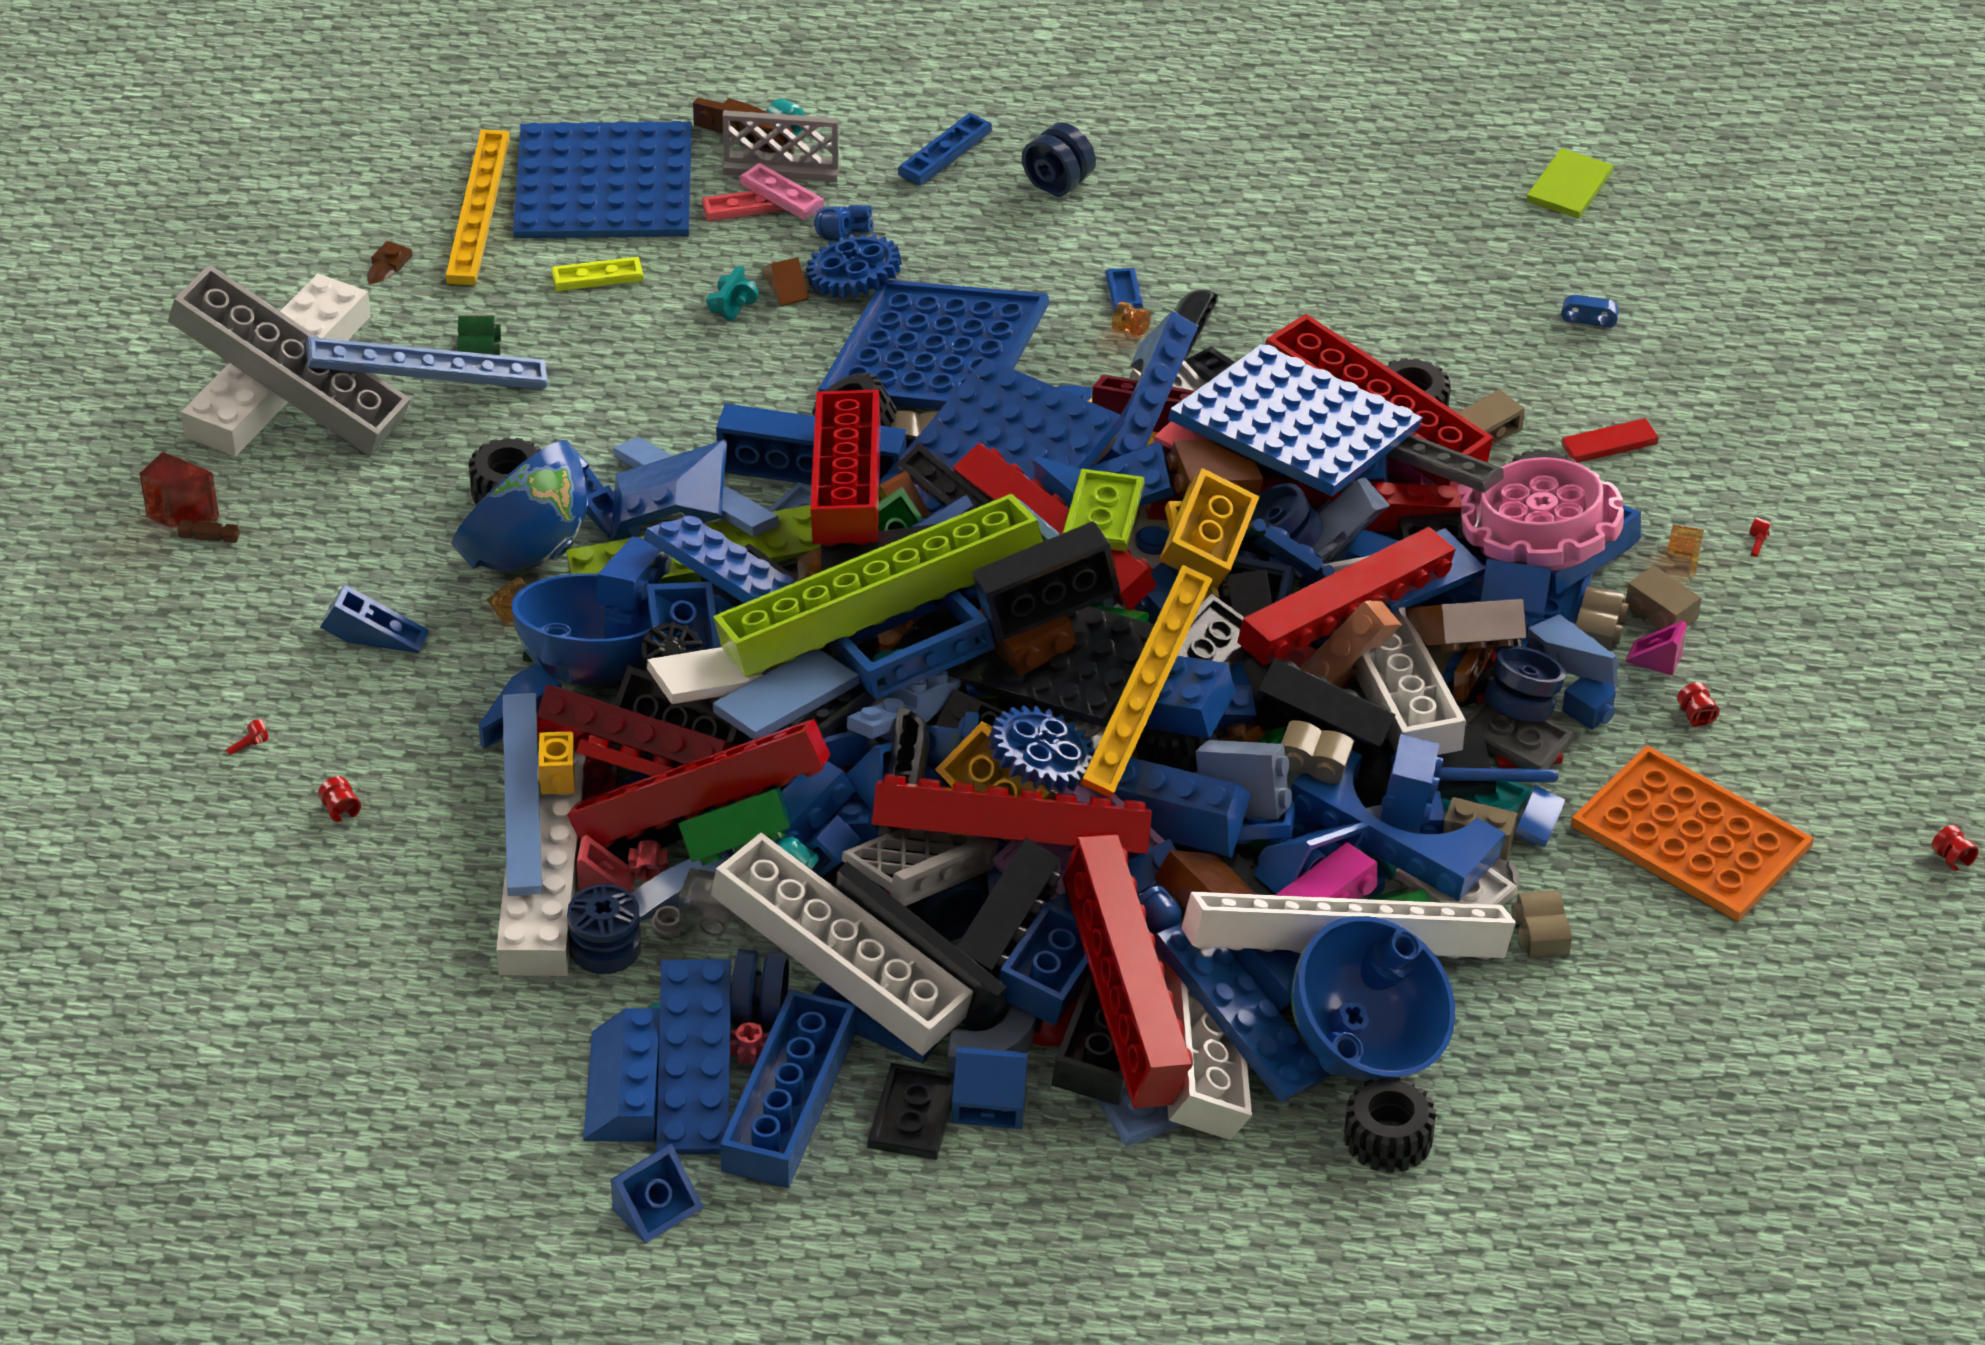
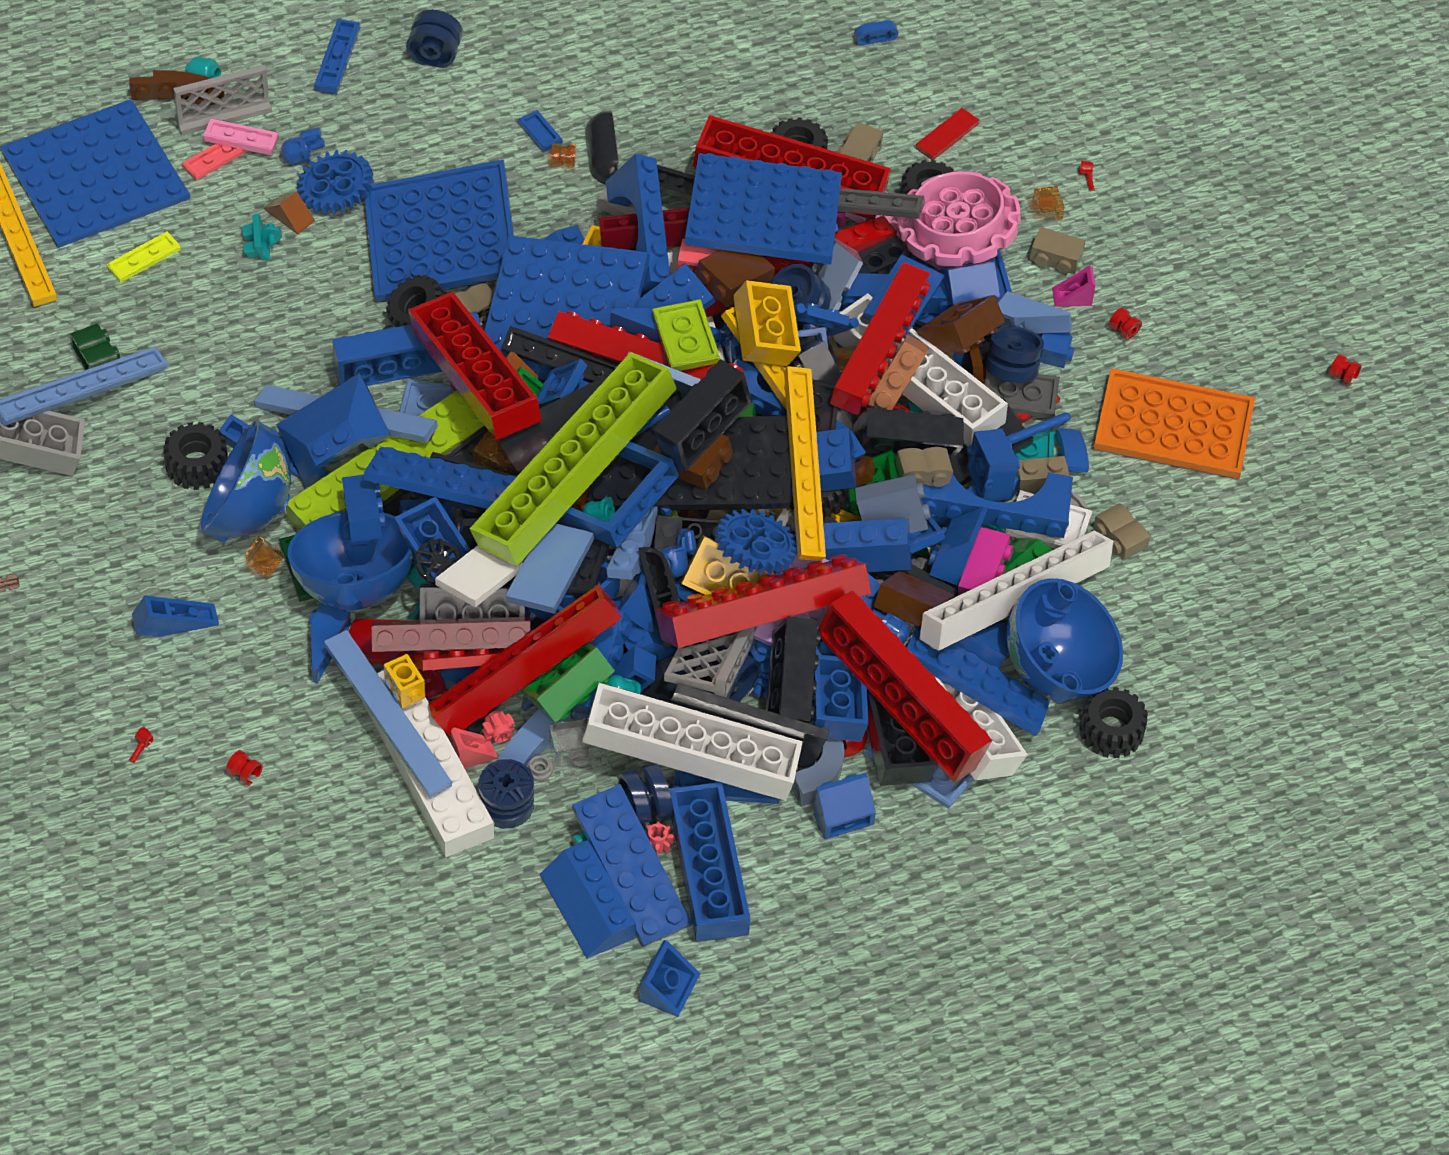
camera: 30 degrees left, 10 degrees up
(912, 1111) = (795, 842): black tile -> none
(1601, 614) = (1025, 277): dark tan brick -> none

